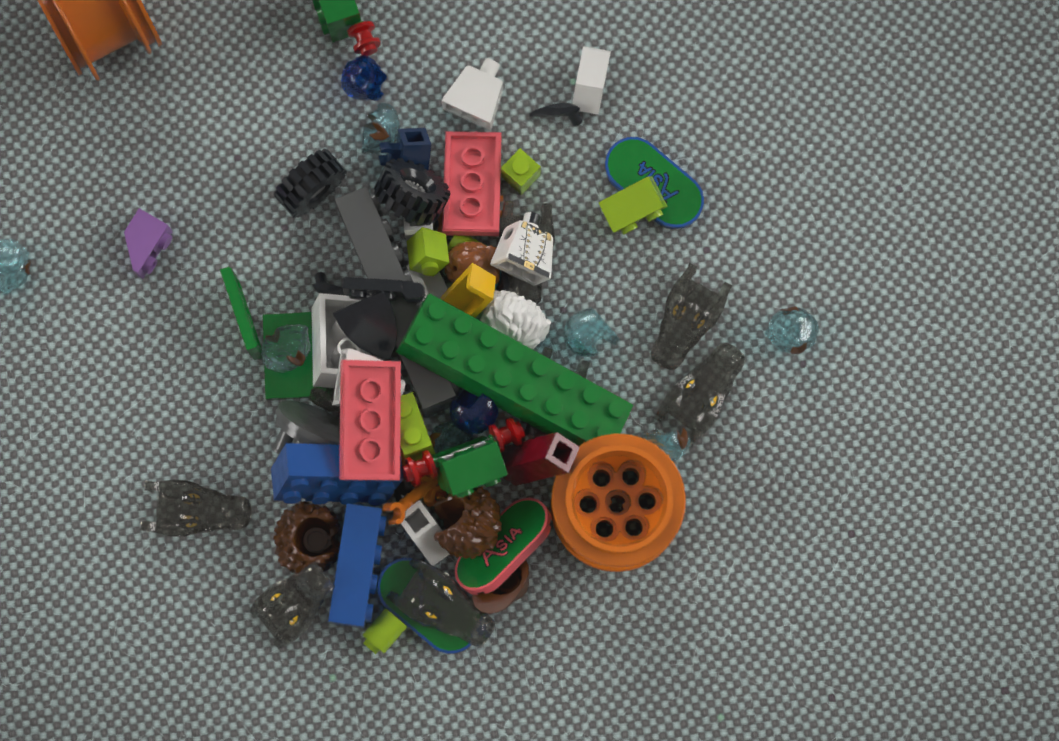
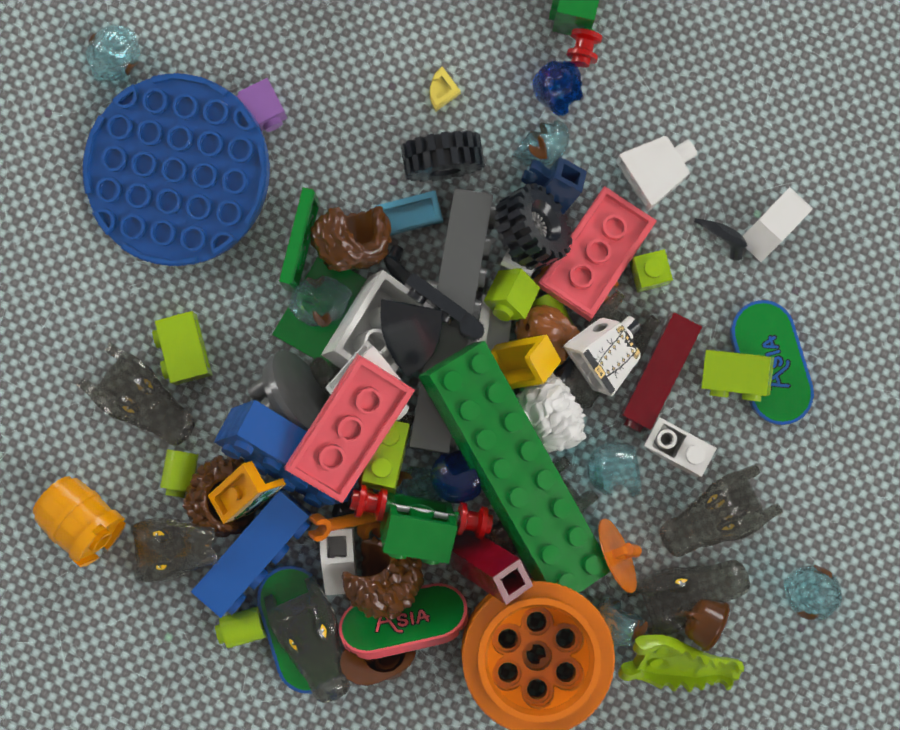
camera: 30 degrees right, 5 degrees up
(112, 321) = (176, 170): none -> blue tile
(203, 451) = (182, 348): none -> lime brick
(206, 629) = (77, 519): none -> light orange piece
(260, 546) = (178, 472): none -> lime brick
(277, 136) = (442, 89): none -> light yellow tile
(280, 288) = (351, 240): none -> reddish brown hair
(311, 244) = (413, 212): none -> medium azure tile
(320, 522) = (242, 493): none -> light orange panel
(576, 242) = (659, 373): none -> dark red brick
(626, 287) = (679, 448): none -> white slope
(632, 392) = (619, 555): none -> orange shield
(725, 447) = (675, 664): none -> lime animal
(726, 399) = (706, 622): none -> reddish brown piece

